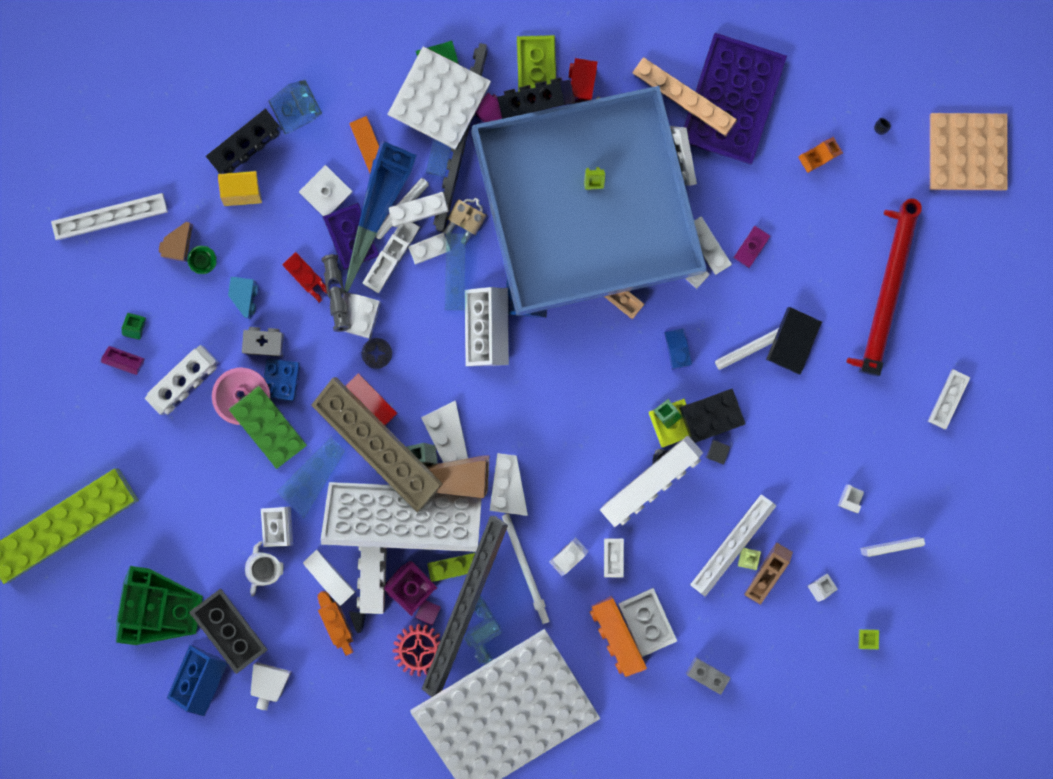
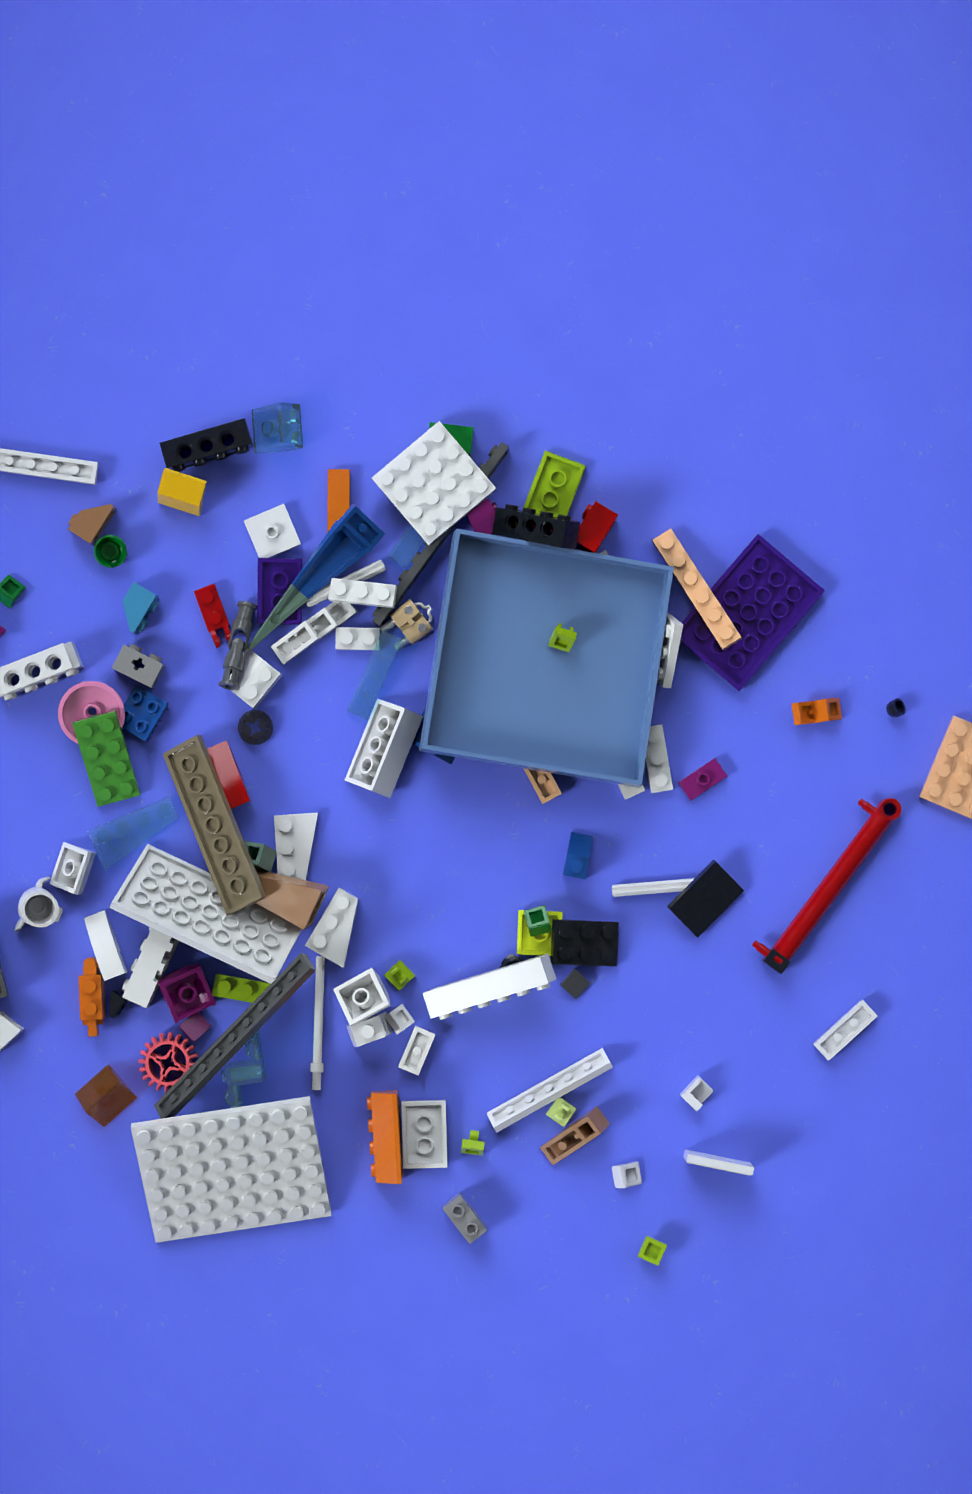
camera: 20 degrees right, 0 degrees up
(379, 698) = (105, 1096): none -> clear orange slope
(552, 532) = (362, 996): none -> white slope
(574, 503) = (399, 975): none -> lime tile
(589, 538) = (399, 1019): none -> white plate
(690, 615) = (472, 1145): none -> lime tile

